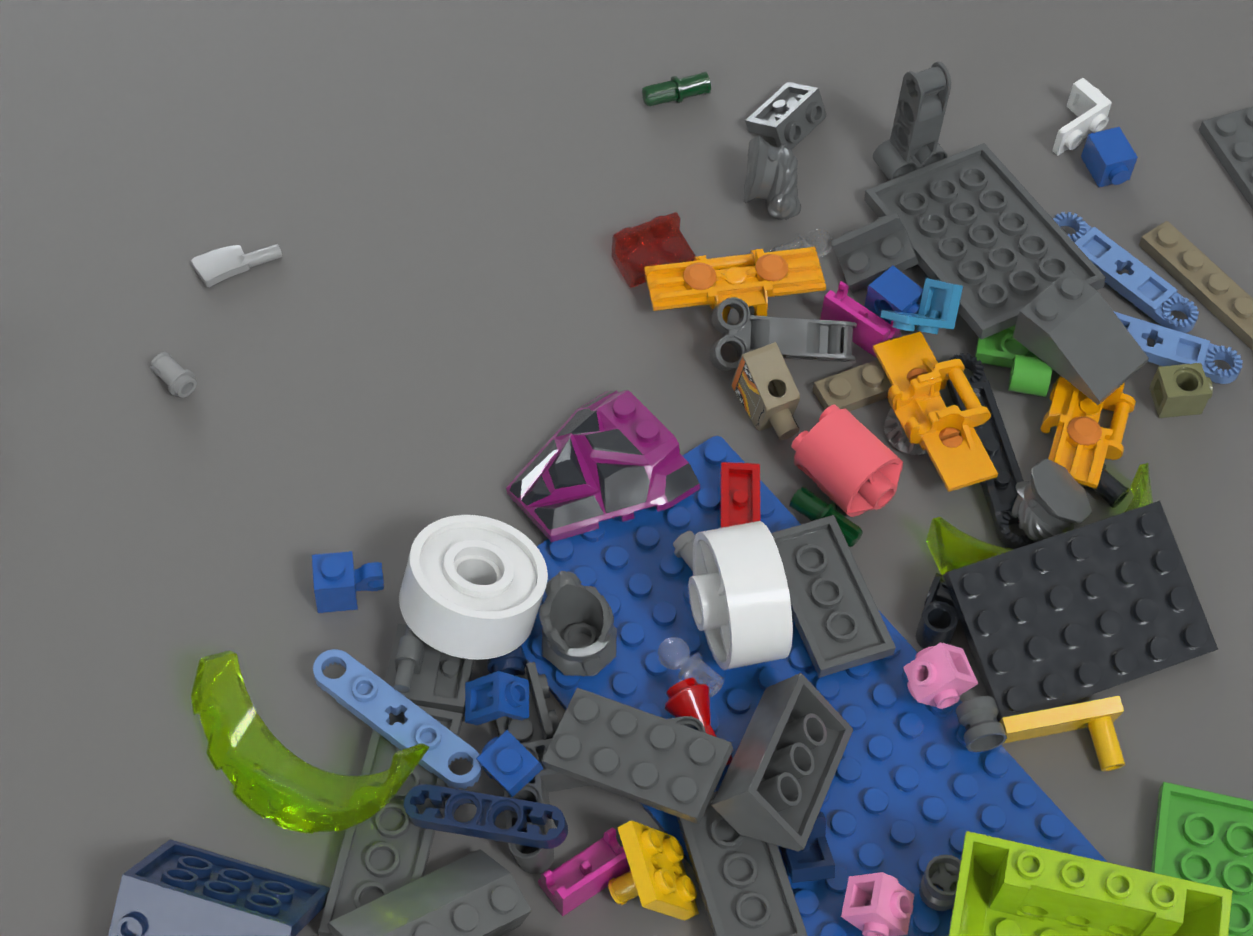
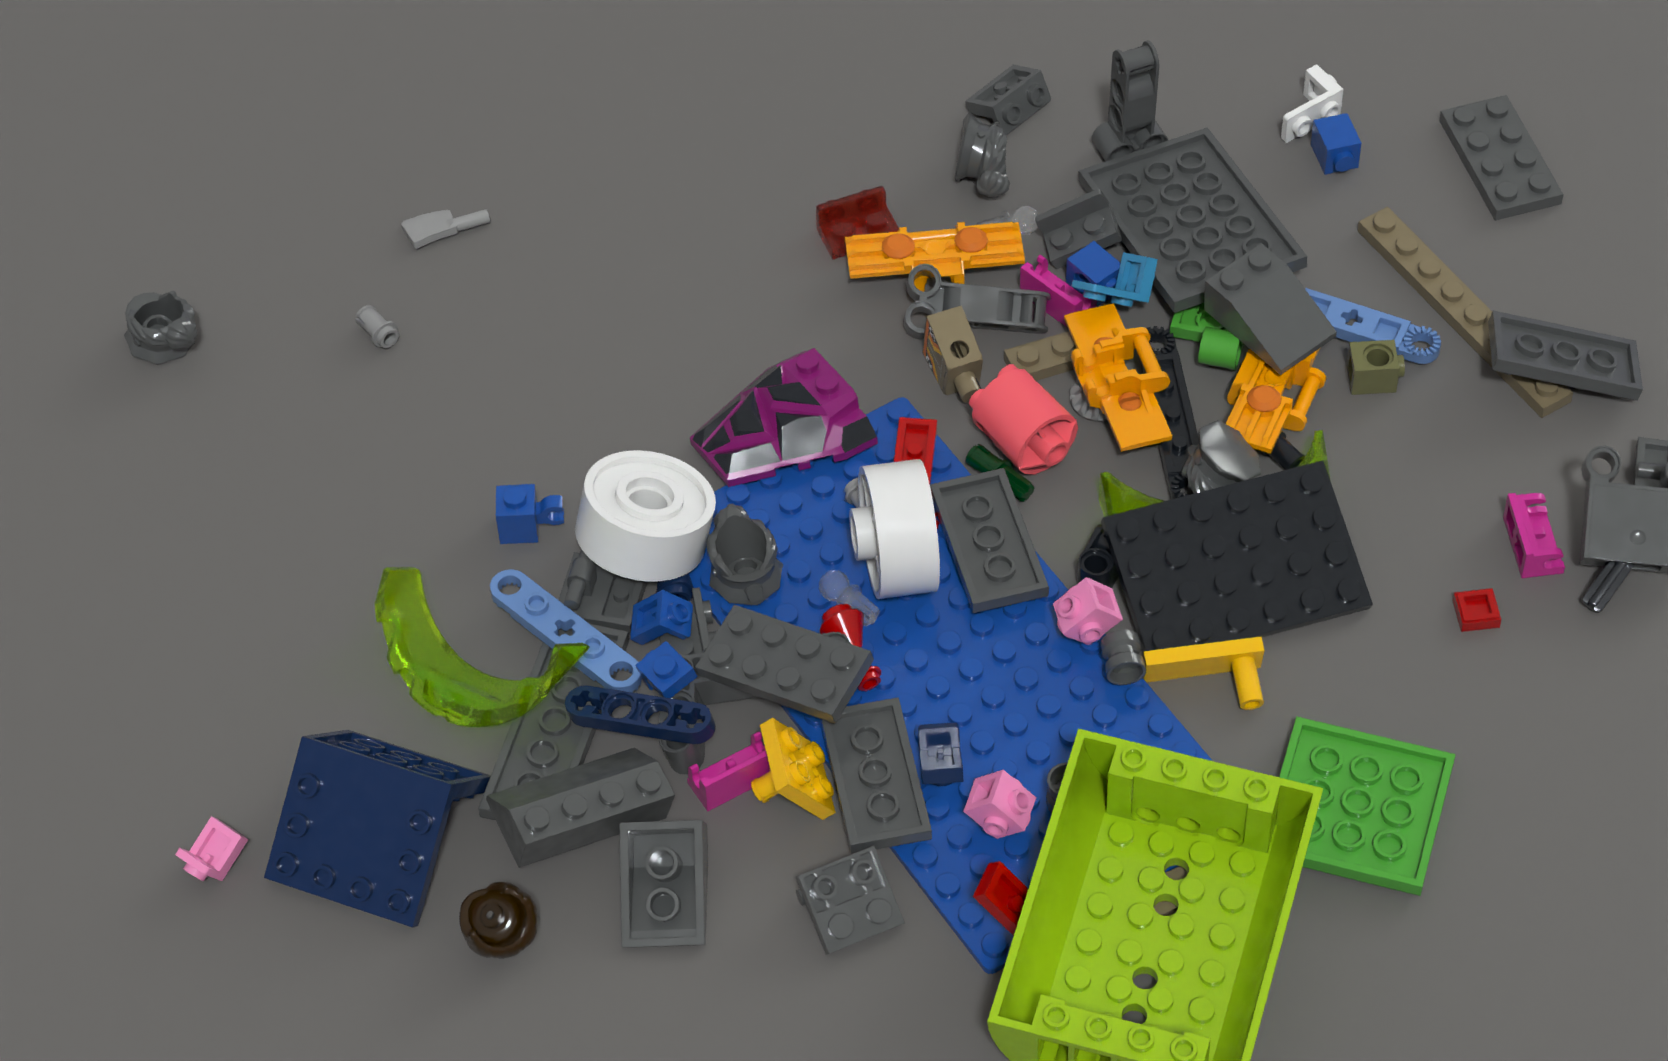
camera: 10 degrees right, 5 degrees down
(676, 89) = (899, 70): dark green axle -> none
(784, 765) = (925, 679): dark grey slope -> none
(1141, 285) = (1351, 270): medium blue piece -> none

